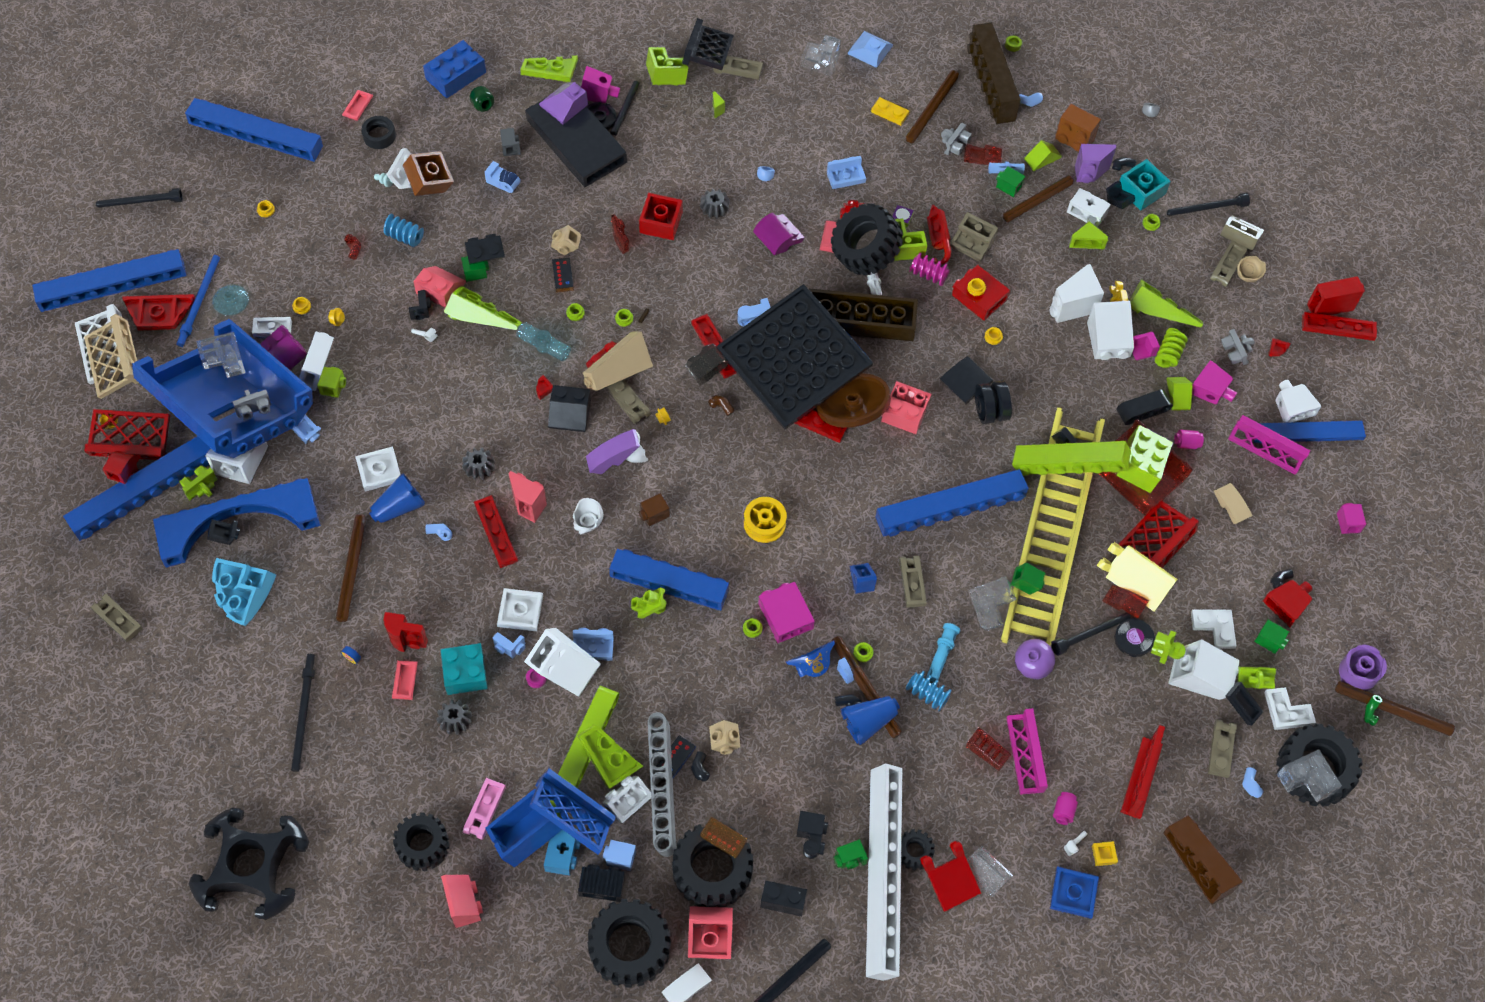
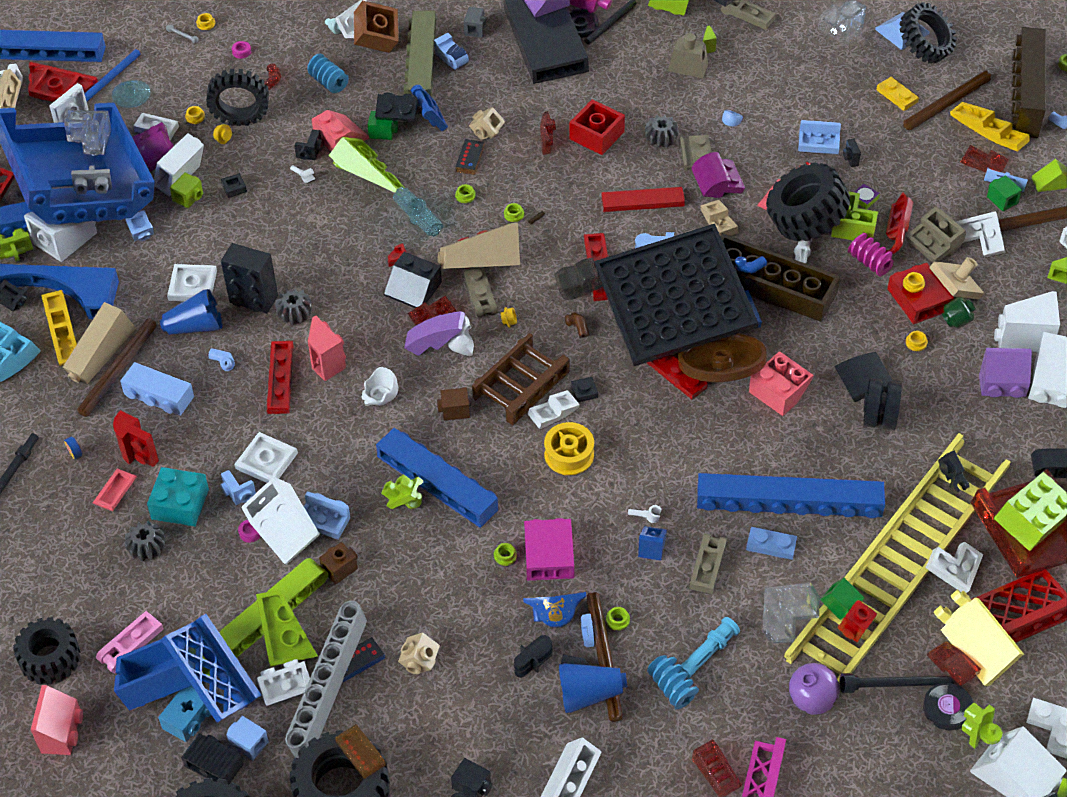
camera: 25 degrees right, 10 degrees down
(187, 334) = (71, 100): none -> white plate
(234, 223) = (170, 28): none -> light grey hinge
(283, 547) = (59, 325): none -> yellow slope
(311, 227) = (241, 49): none -> dark pink tile
(326, 553) = (99, 343): none -> tan slope
(335, 268) = (237, 80): none -> black tyre
(370, 364) = (233, 185): none -> black plate
(397, 577) = (157, 389): none -> light blue brick
(434, 452) = (249, 278): none -> black brick
(478, 189) = (420, 51): none -> olive brick
(510, 239) = (429, 107): none -> blue plate
(598, 432) = (426, 312): none -> clear red slope
(624, 680) = (339, 562): none -> reddish brown brick
(698, 769) = (376, 677): black arm -> none
(708, 126) = (689, 57): none -> dark tan torso
(710, 482) = (527, 395): none -> reddish brown fence
(724, 272) = (642, 199): none -> red tile
(735, 488) = (557, 408): none -> white slope
(748, 213) = (694, 148): none -> dark tan plate
(751, 461) = (584, 389): none -> black plate
(794, 272) = (717, 213): none -> tan slope
(813, 706) = (533, 656): none -> black arm
(846, 313) = (750, 267): none -> blue arm
(849, 554) = (649, 514): none -> white hand
(877, 179) = (852, 152): none -> black plate
(888, 56) = (916, 39): none -> black tyre
(952, 138) = (956, 136): light grey hips -> none
(952, 547) = (771, 543): none -> medium blue plate
(975, 122) = (985, 123): none -> yellow slope
(1005, 271) = (957, 278): none -> tan tile
(1012, 220) = (987, 229): none -> white plate
(1017, 301) = (958, 312): none -> dark green head
(1047, 594) = (857, 621): none -> red bracket
(1072, 458) = (948, 483): lime brick -> none
(1073, 344) = (1005, 372): none -> medium lavender slope
(1099, 524) = (956, 570): none -> white plate

